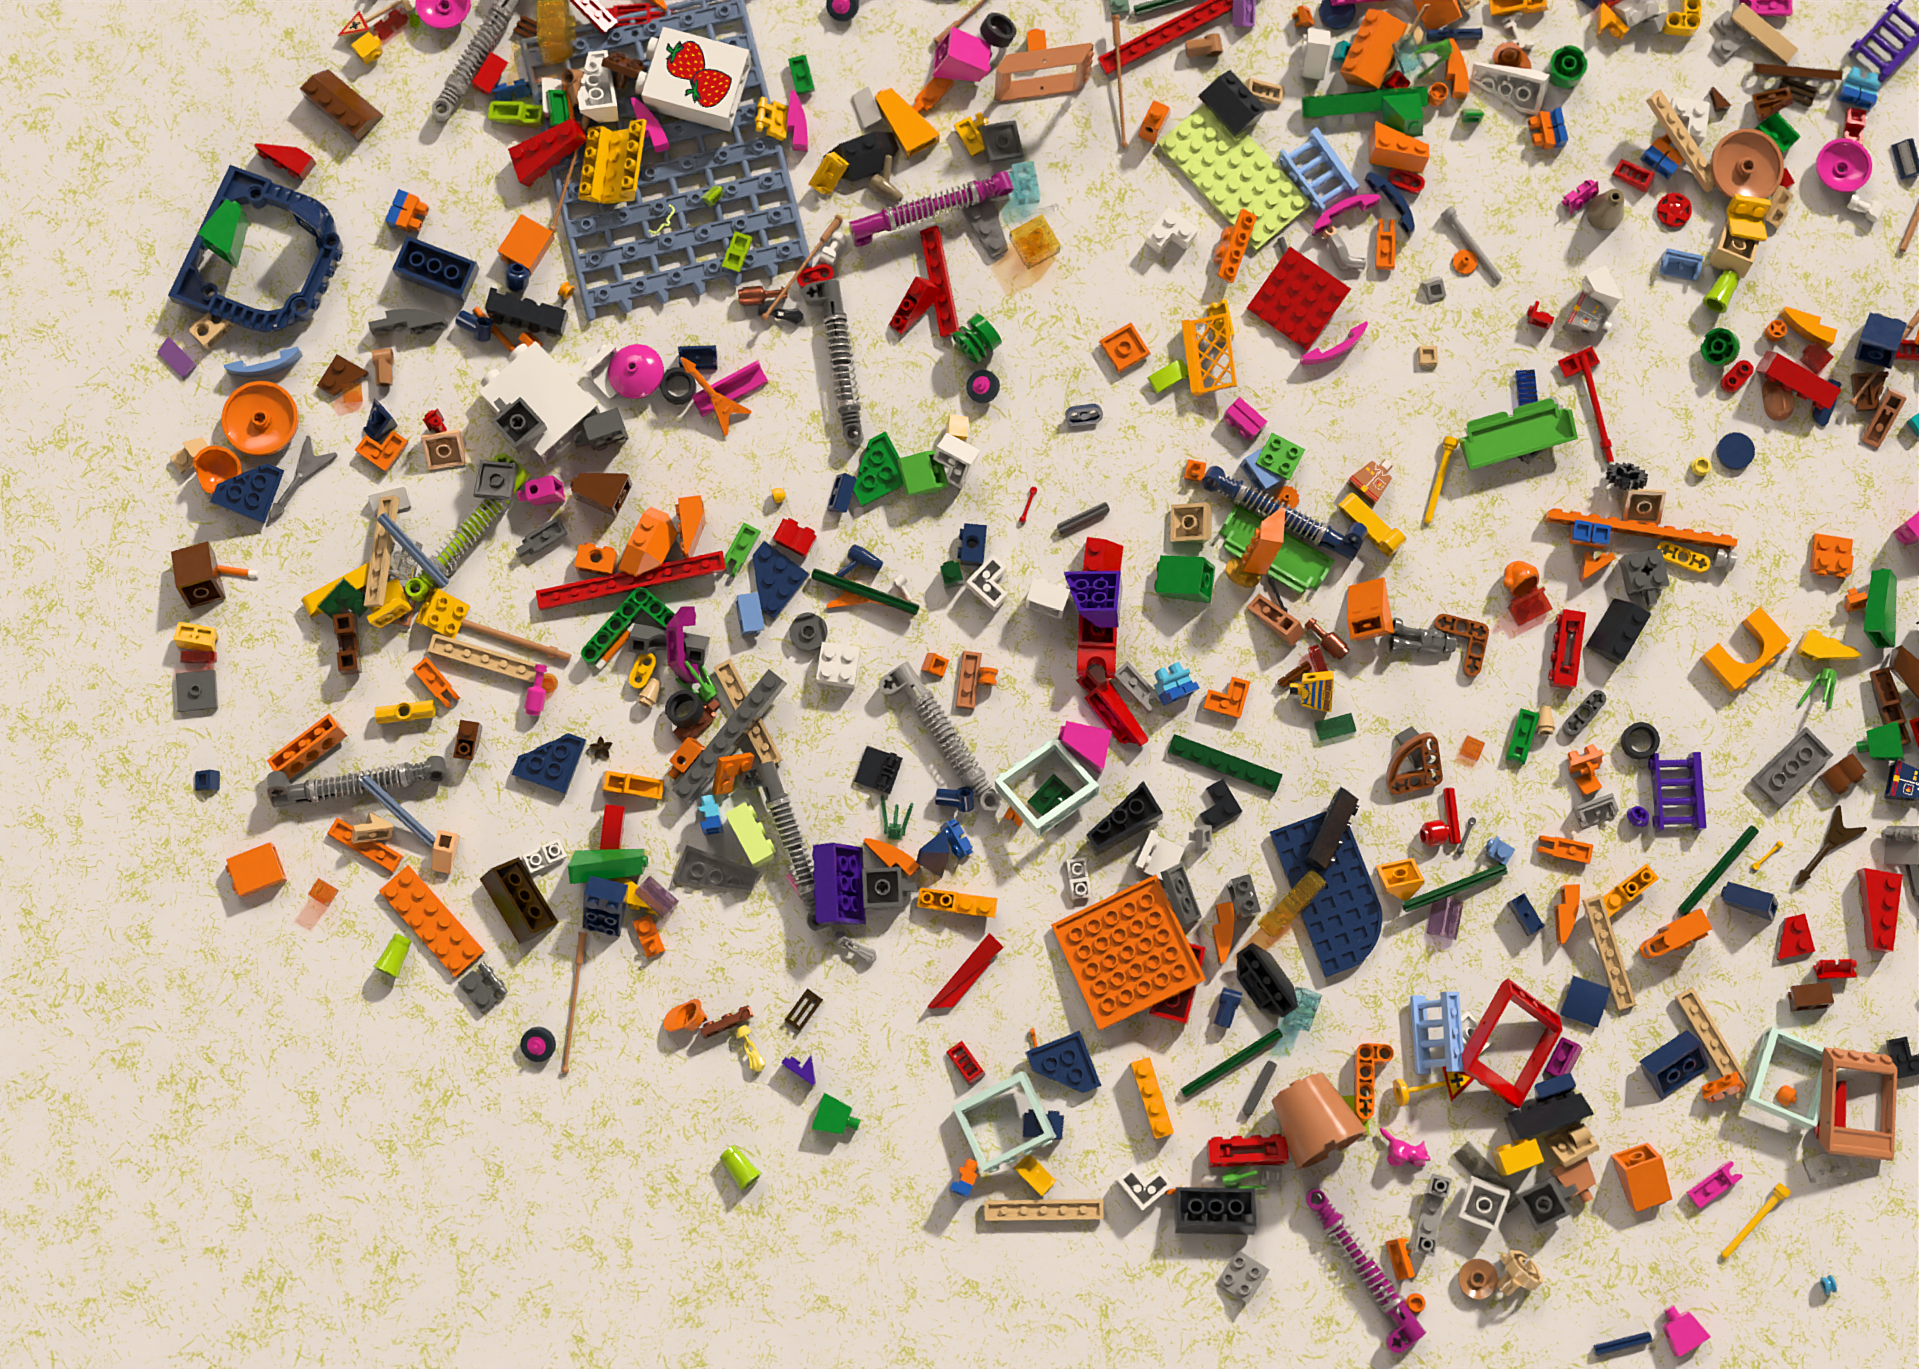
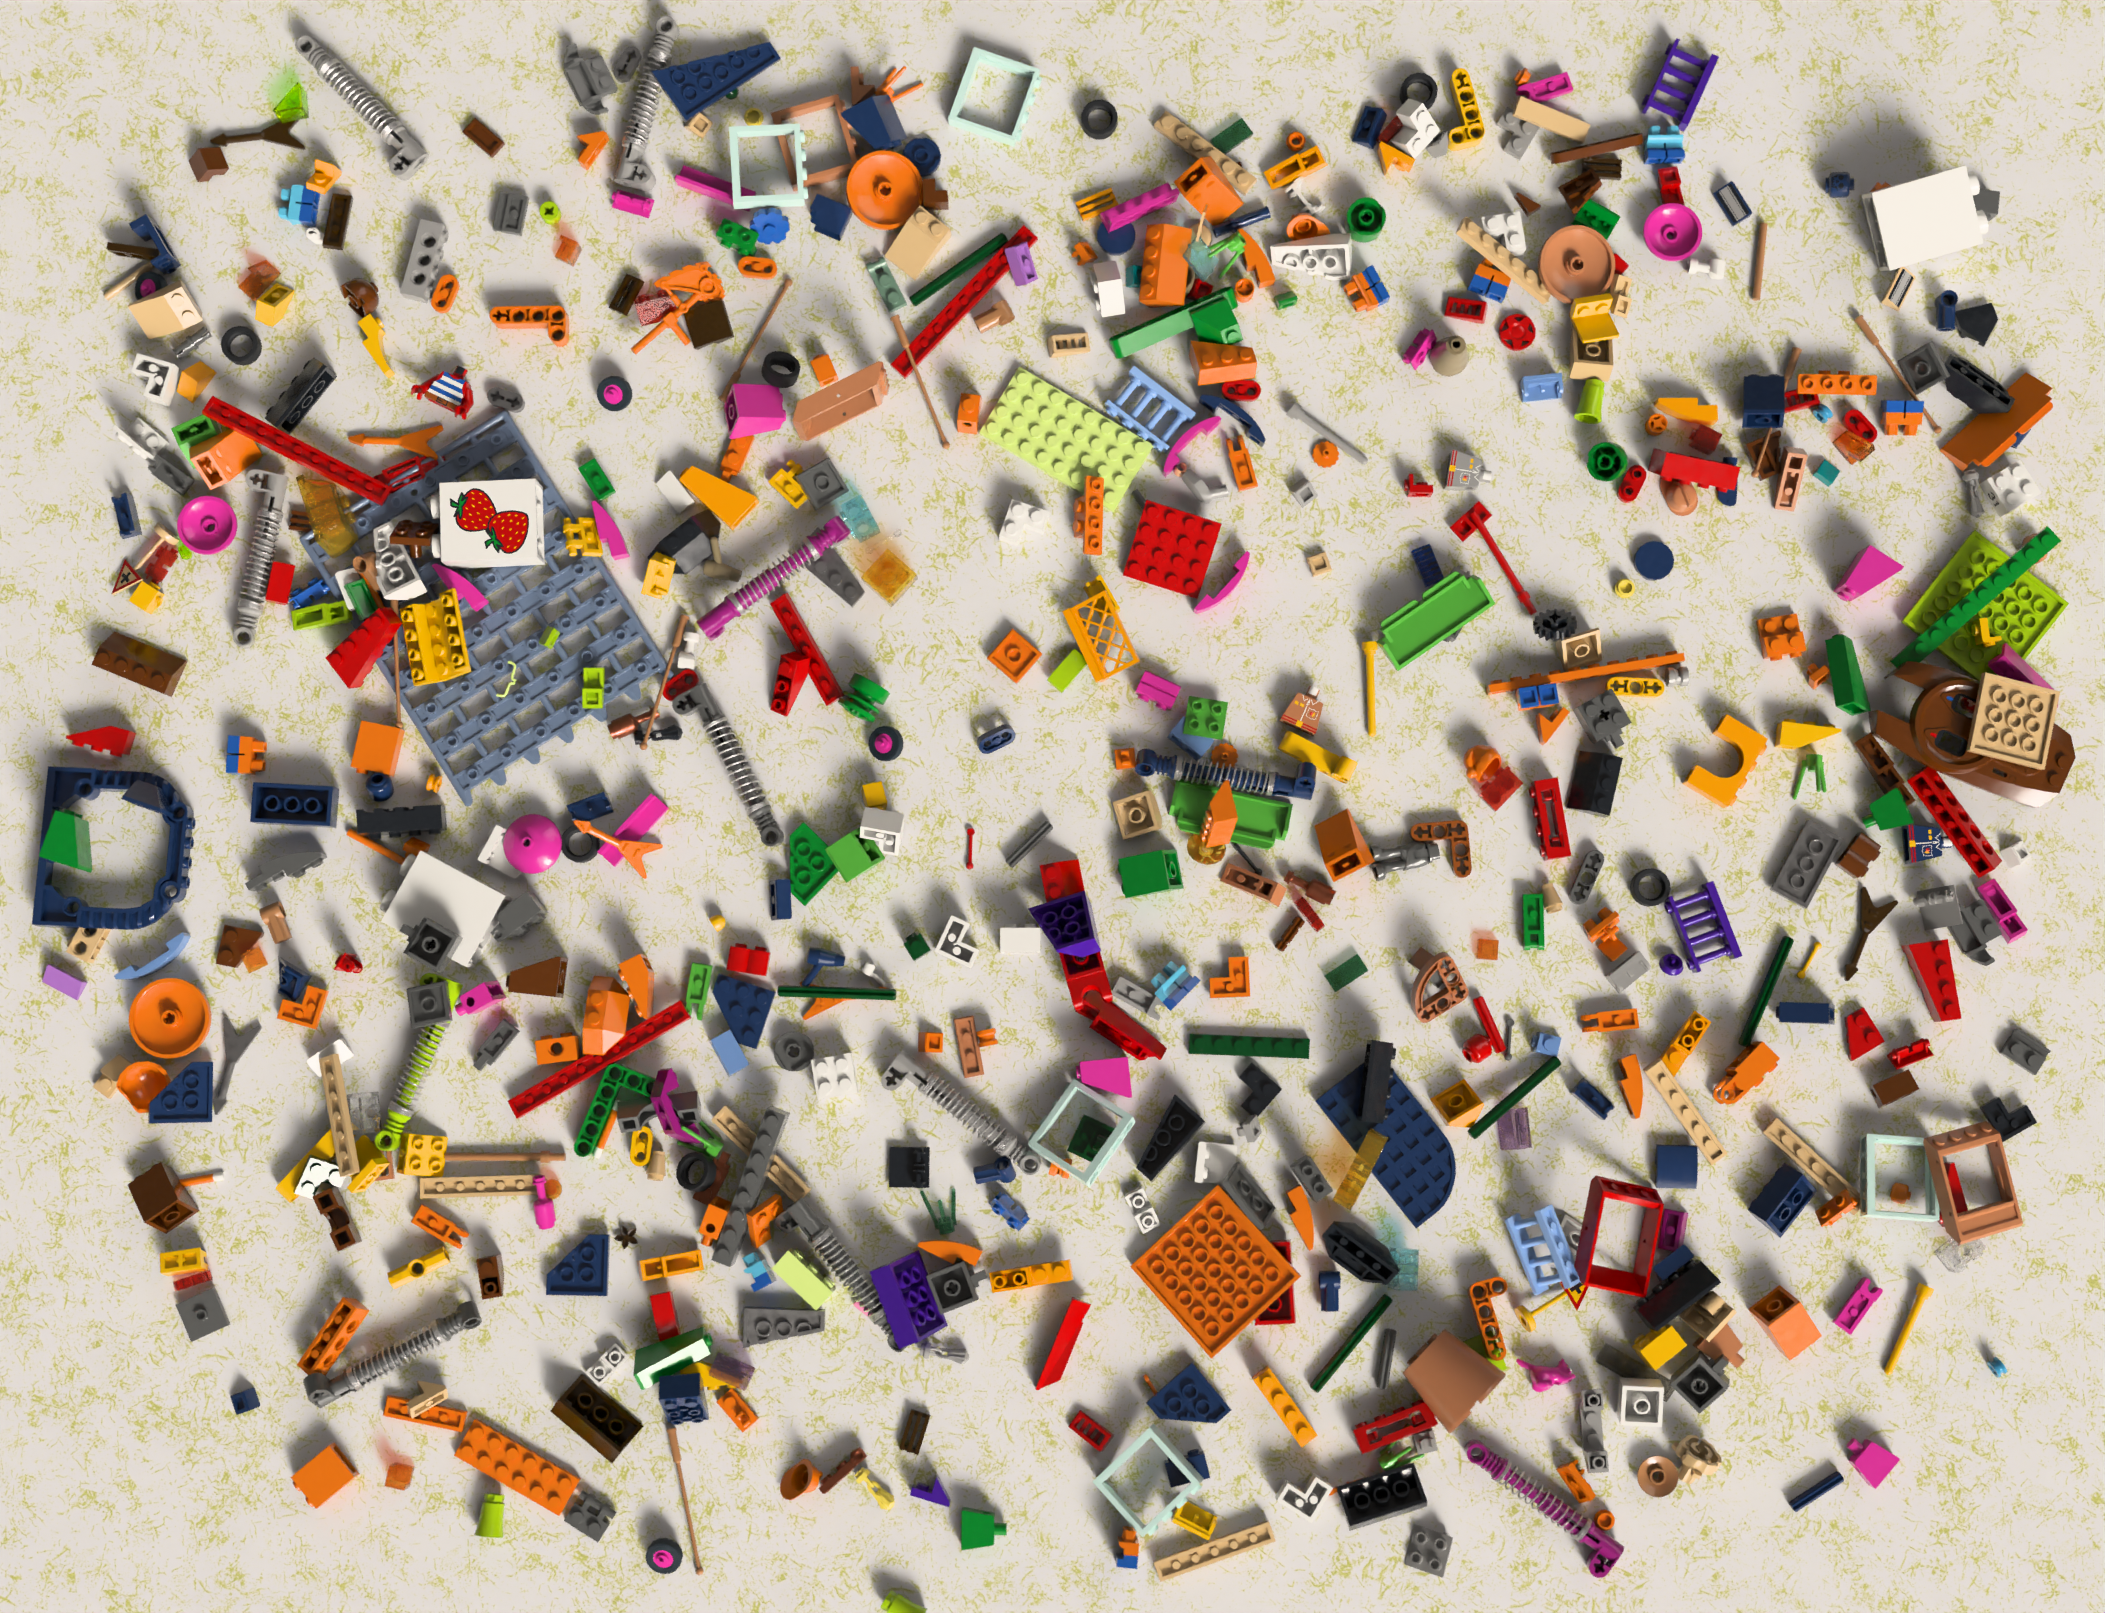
camera: 15 degrees left, 5 degrees up
(397, 810) = (445, 1370): sand blue axle -> none
(412, 550) = (370, 1105): sand blue axle -> none
(444, 449) = (367, 988): light nougat slope -> none
(444, 851) = (506, 1394): light nougat slope -> none
(480, 327) = (359, 849): dark blue piece -> none
(935, 854) = (993, 1235): slope -> none
(975, 555) = (928, 896): dark blue brick -> none
(1232, 103) = (1041, 368): black slope -> none
(1315, 690) = (1315, 945): torso -> none
(1602, 288) = (1471, 440): white slope -> none

